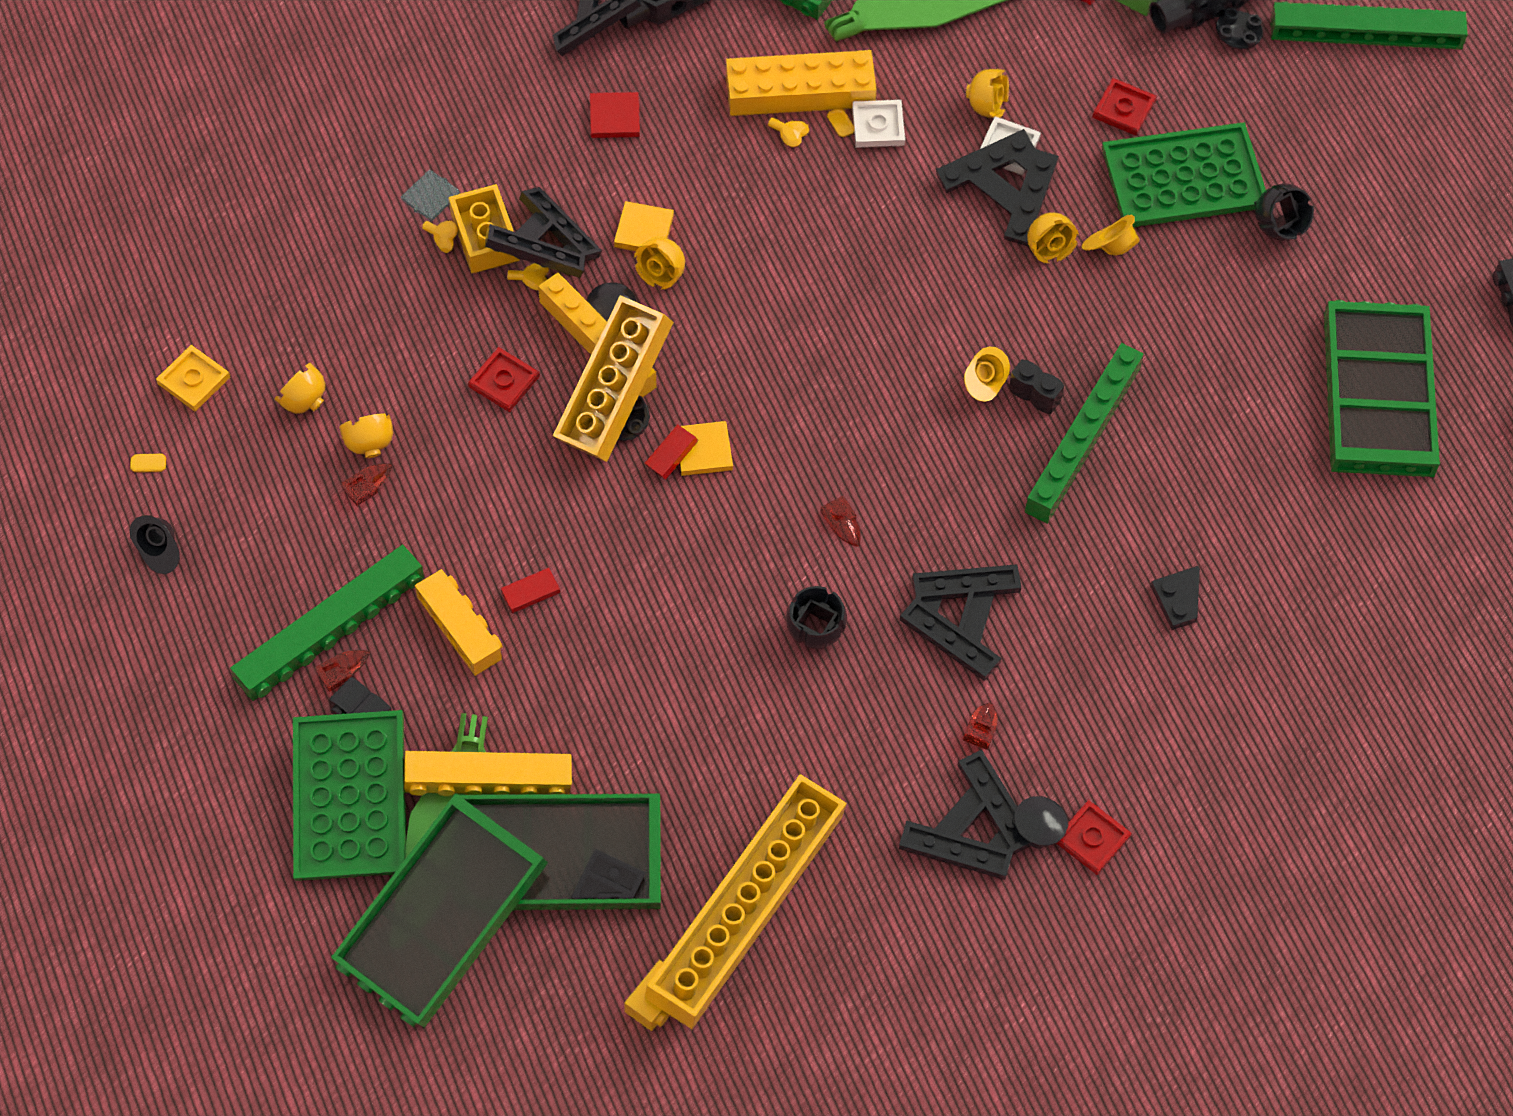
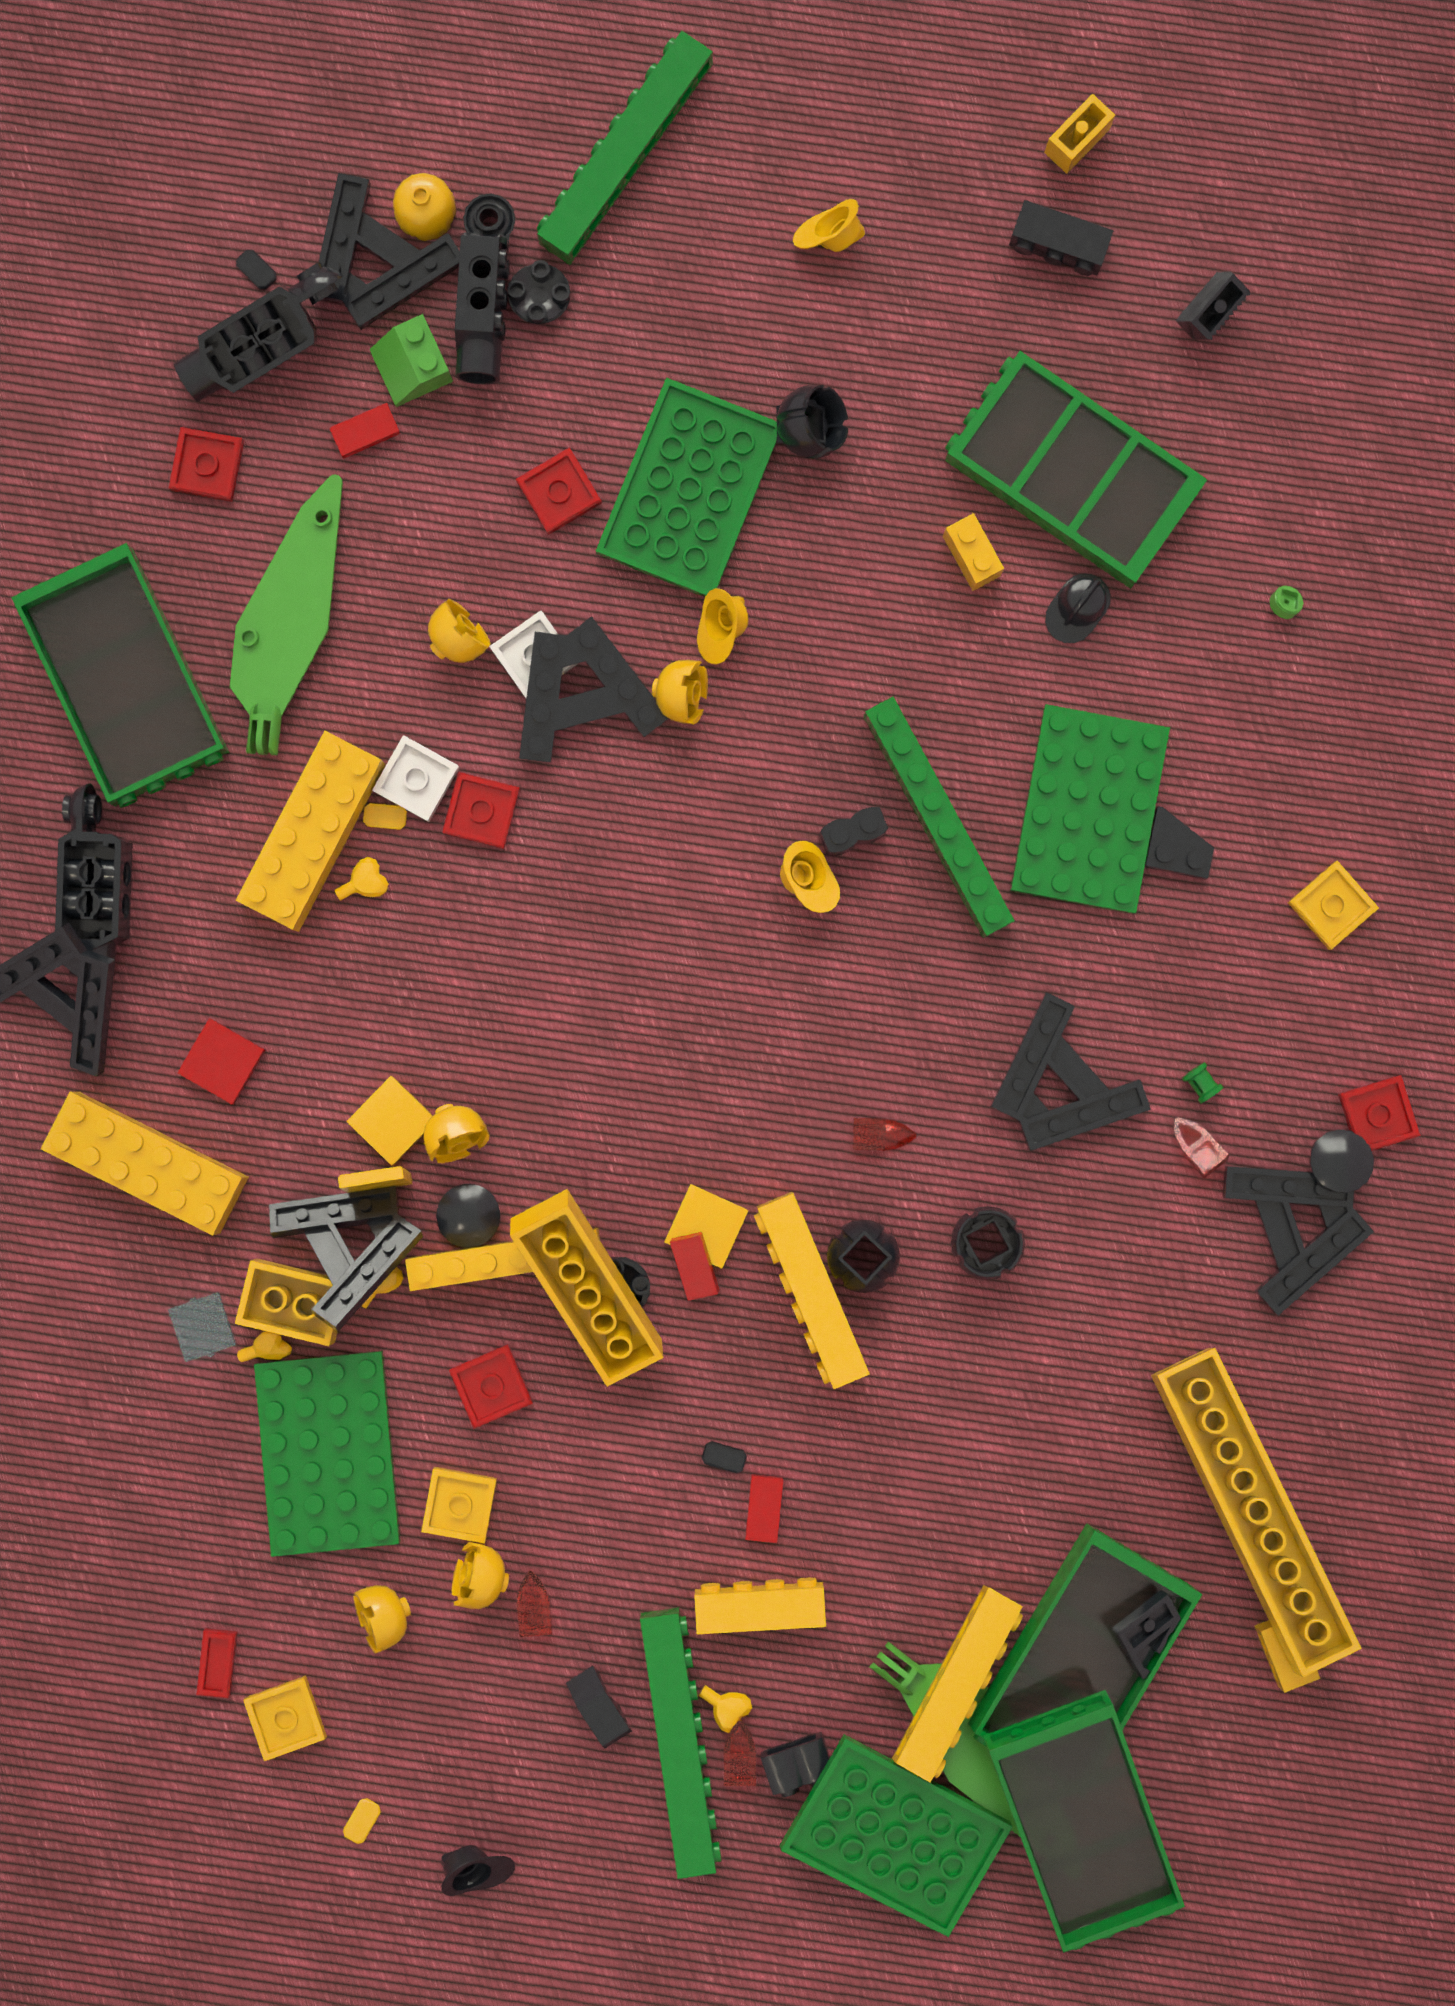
camera: 55 degrees left, 25 degrees up
(206, 319) = (216, 1663): none -> red tile
(320, 558) = (598, 1707): none -> black slope
(373, 642) = (727, 1707): none -> yellow rock
(393, 308) = (327, 1453): none -> green plate
(409, 403) = (459, 1505): none -> yellow tile
(519, 104) = (144, 1162): none -> yellow brick
(549, 547) = (724, 1457): none -> black piece
(599, 229) = (375, 1179): none -> yellow tile
(705, 525) = (813, 1291): none -> yellow brick
(748, 562) = (843, 1243): none -> black piece
(885, 172) = (481, 810): none -> red tile
(1028, 702) = (1202, 1082): none -> green bush
(1162, 527) = (1090, 809): none -> green plate
(1217, 720) = (1333, 905): none -> yellow tile
(1276, 356) = (973, 552): none -> yellow brick
(1292, 444) = (1077, 608): none -> black piece
(1399, 568) = (1286, 602): none -> bright green tile
(1416, 167) = (832, 229): none -> yellow piece

